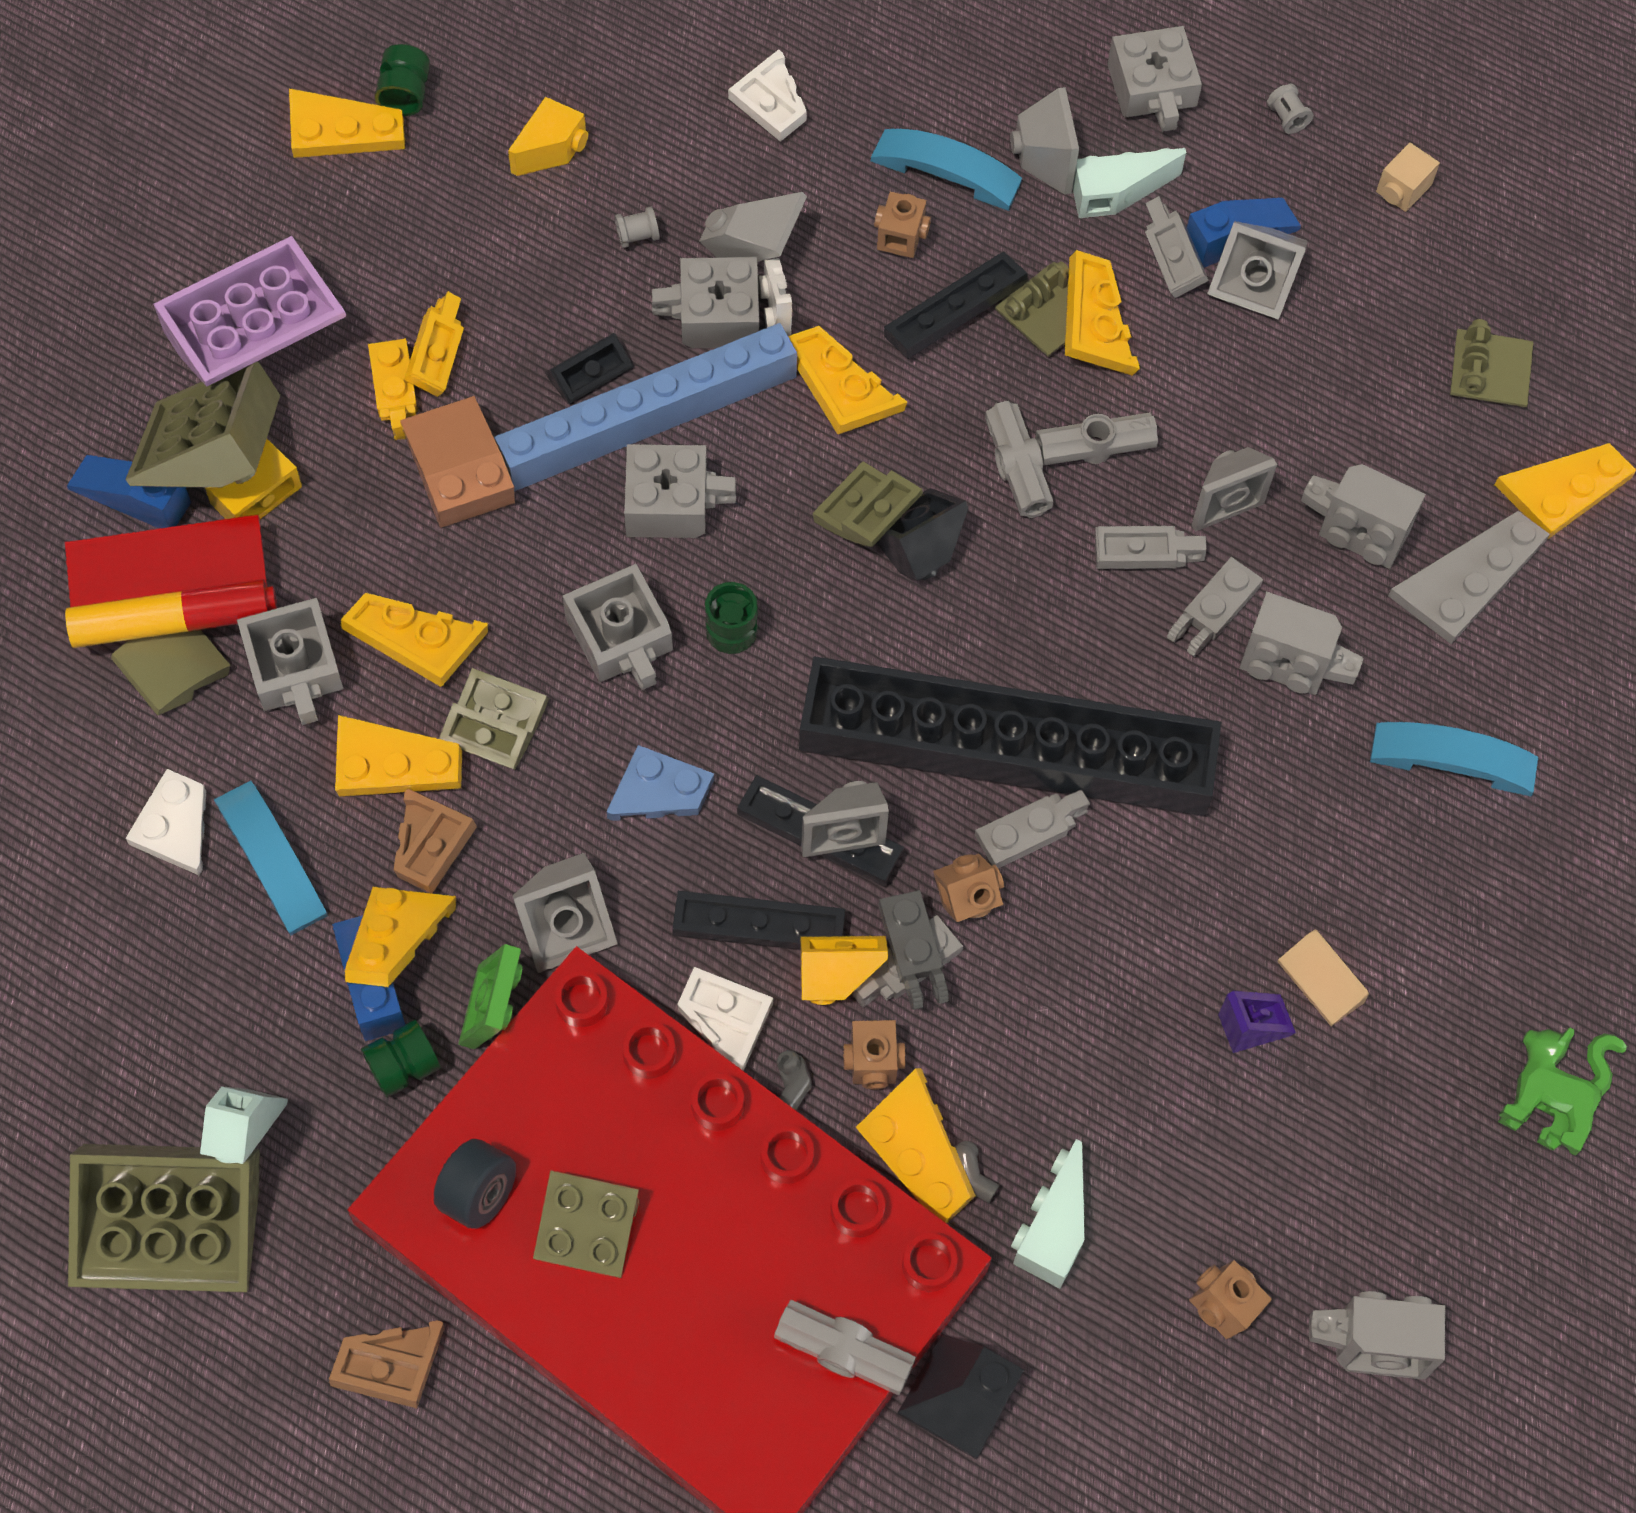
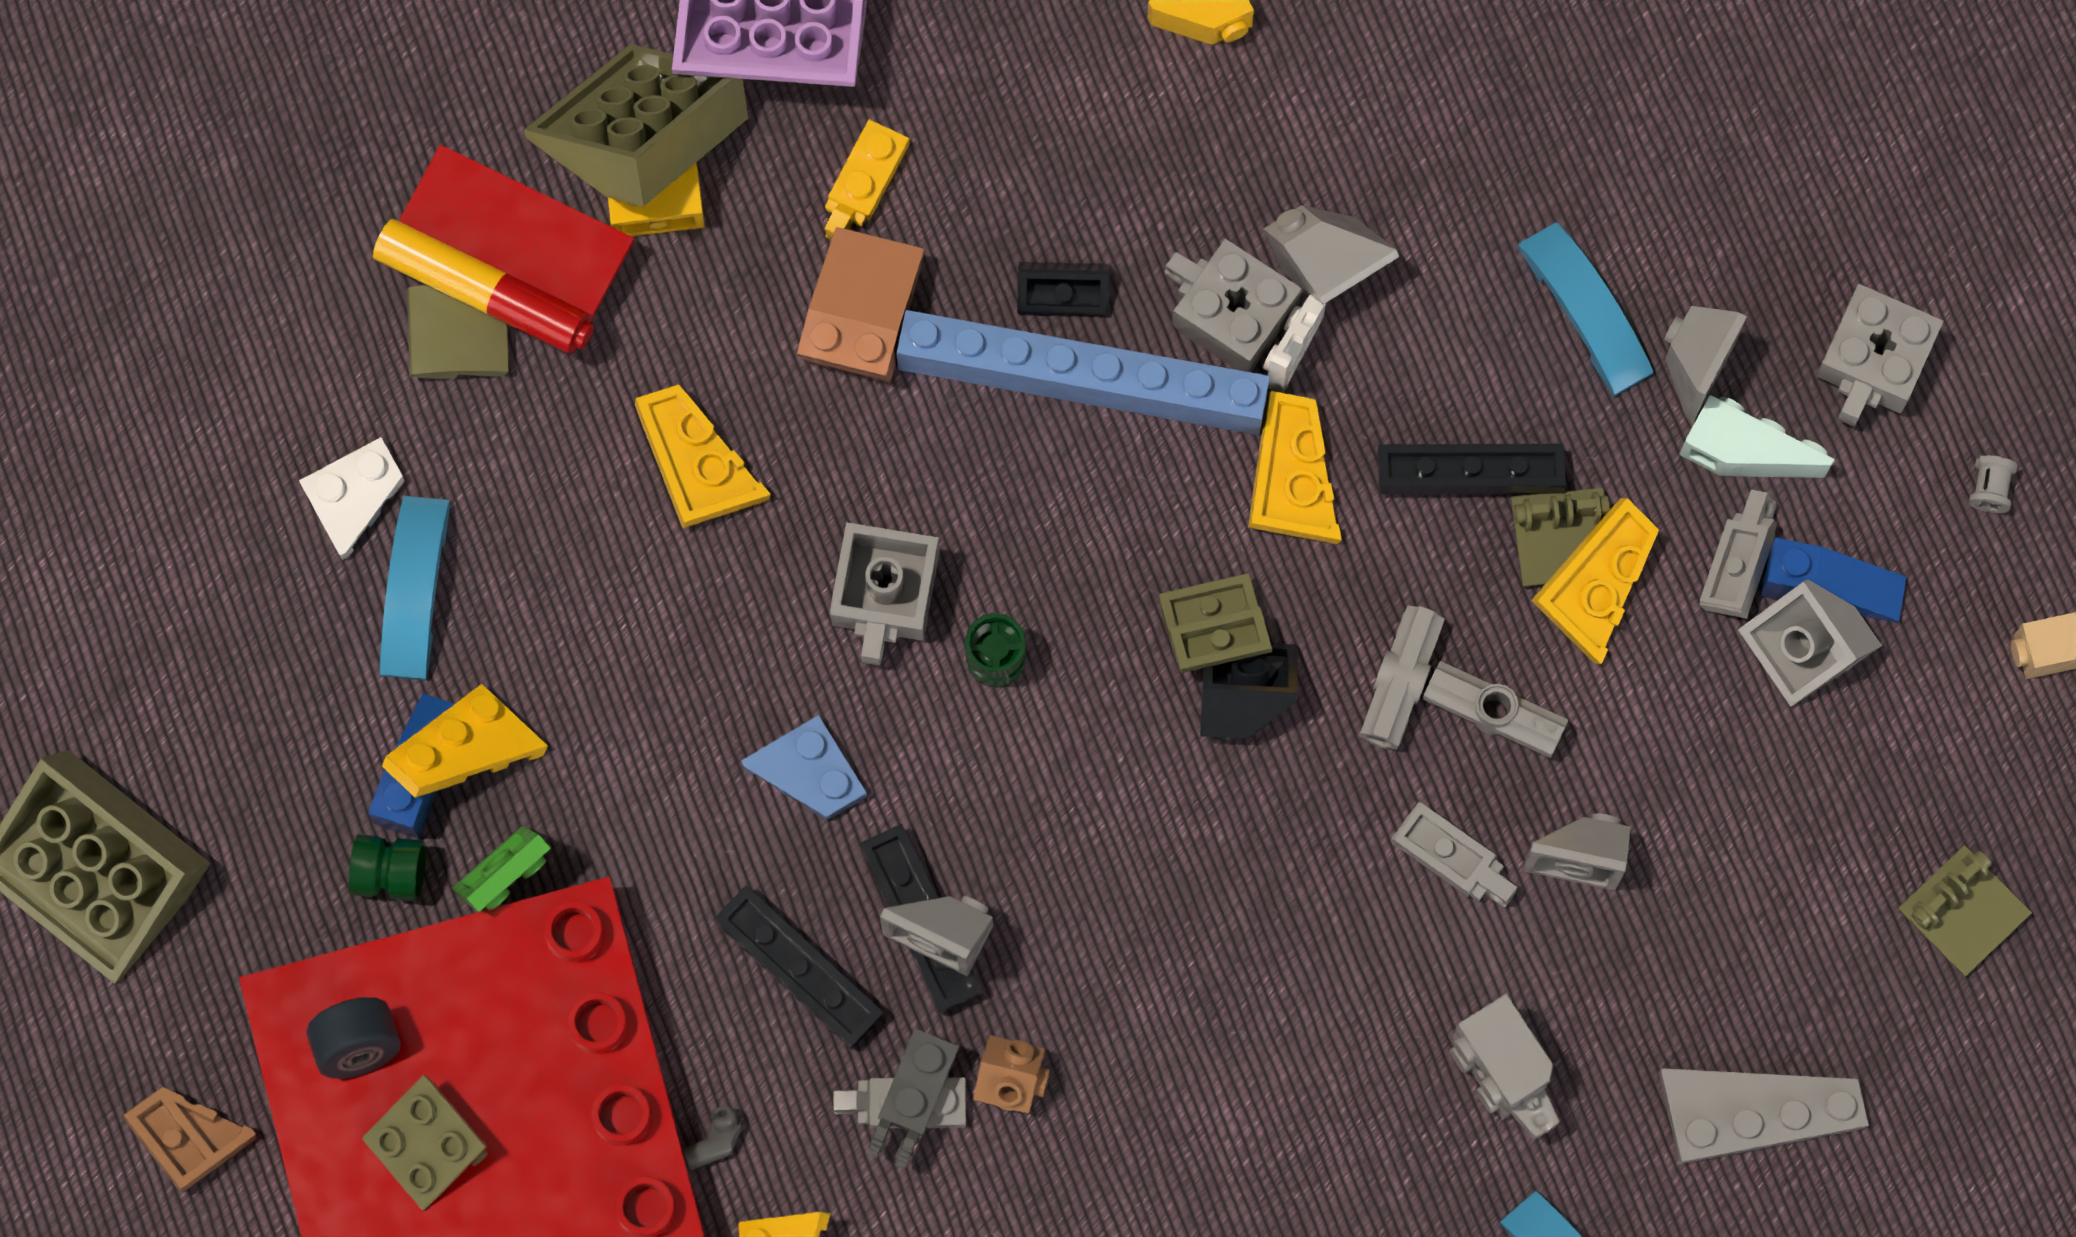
camera: 40 degrees right, 10 degrees up
(105, 483) = (525, 100): blue slope -> none
(237, 1122) = (203, 830): light aqua slope -> none
(290, 657) = (568, 432): light grey hinge -> none
(392, 760) = (585, 571): yellow wing -> none
(429, 840) = (562, 675): medium nougat wing -> none
(436, 346) = (931, 166): yellow hinge -> none
(494, 719) = (708, 594): slope -> none
(562, 911) = (629, 832): light grey slope -> none
(637, 227) = (1220, 167): light grey bush -> none
(671, 490) = (1037, 503): light grey hinge -> none
(725, 1014) = (701, 1034): white wing -> none
(770, 97) = (1465, 109): white wing -> none
(838, 965) = (832, 1061): yellow slope -> none
(874, 1054) = (805, 1151): medium nougat brick -> none
(901, 224) = (1482, 344): medium nougat brick -> none
(1010, 736) = (1163, 955): black brick -> none
(1030, 827) = (1119, 1056): light grey hinge -> none
(1216, 604) = (1477, 962): light grey hinge -> none
(1365, 512) = (1688, 976): light grey hinge -> none
(1566, 487) = (1932, 1088): yellow wing -> none

